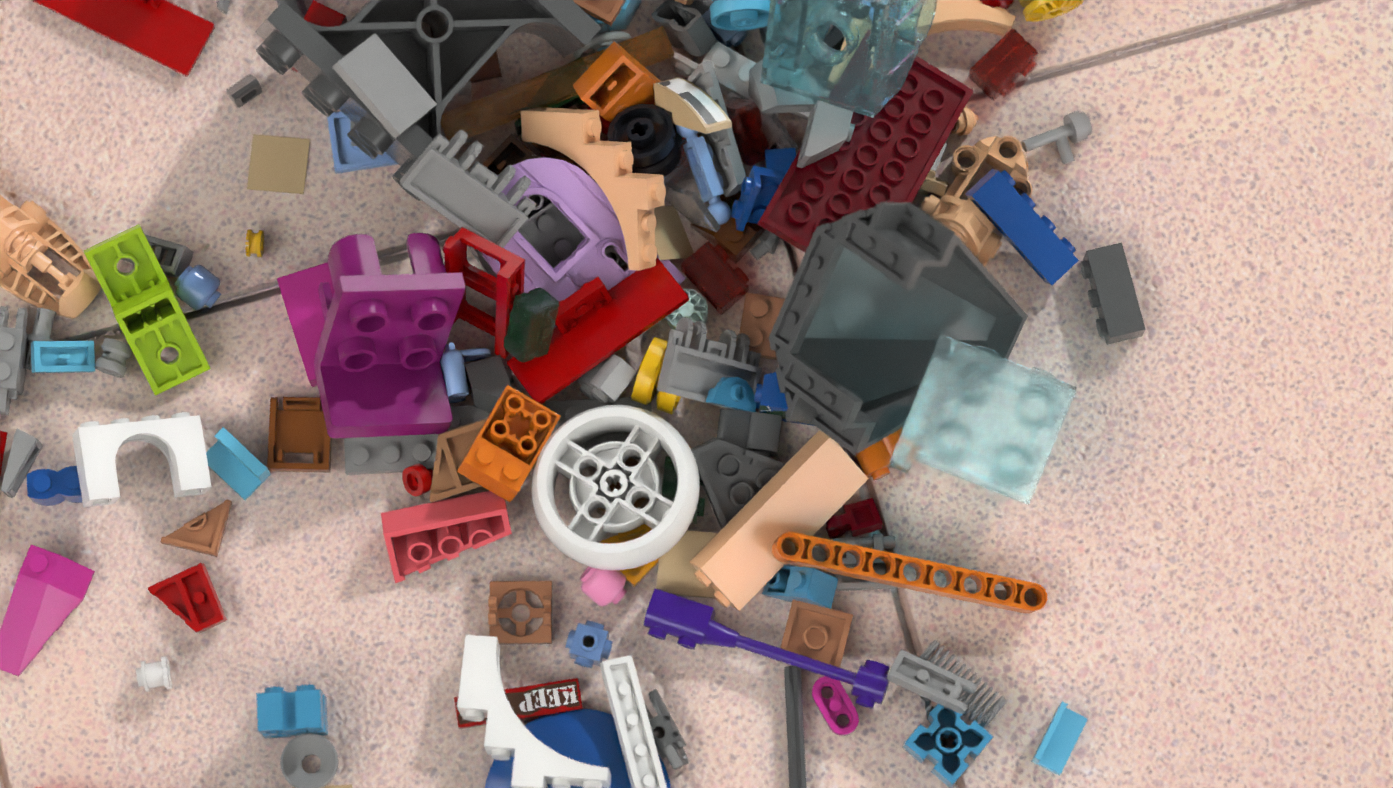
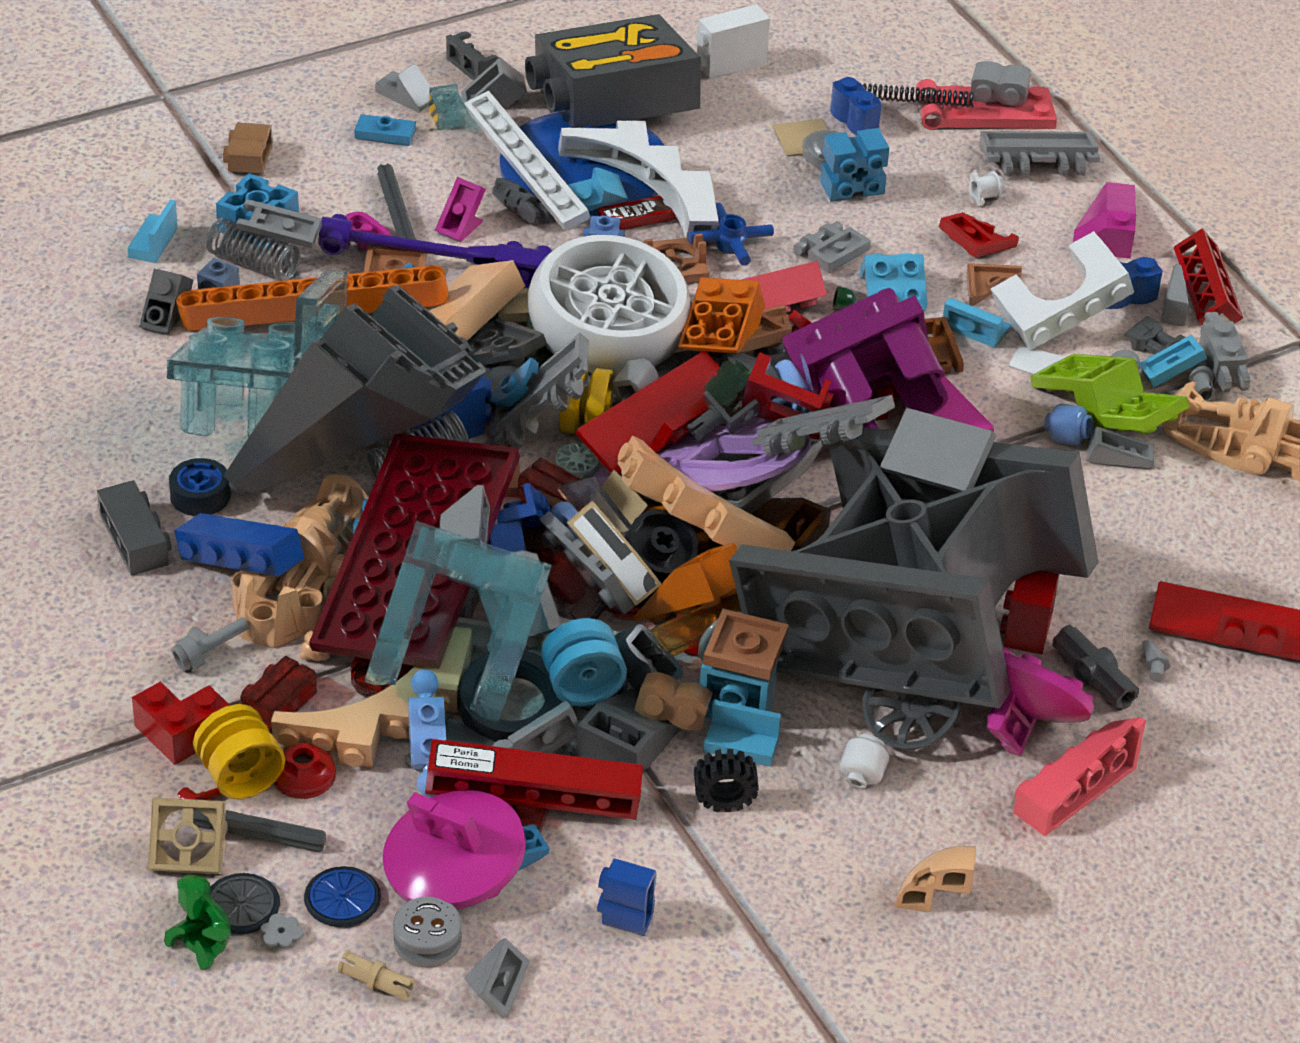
camera: 165 degrees right, 35 degrees down
(71, 740) = (1016, 147): none -> light grey hinge
(72, 415) = (1148, 335): none -> dark grey piece
(189, 398) = (1032, 360): none -> white sticker
(244, 90) = (1098, 582): dark grey slope -> none
(302, 534) = (899, 272): none -> medium azure bracket
(343, 599) = (833, 246): none -> light grey plate
(362, 518) = (843, 298): none -> dark green hinge
(439, 637) = (732, 234): none -> blue bar
(551, 282) = (718, 416): none -> dark grey bracket
(577, 720) = (601, 190): none -> medium azure slope
(732, 715) = (460, 209): none -> dark pink slope
(1000, 633) = (218, 274): none -> sand blue brick
(1032, 348) = (199, 487): none -> black wheel
(1055, 619) = (160, 307): none -> dark grey slope
(1093, 38) = (171, 721): none -> red brick

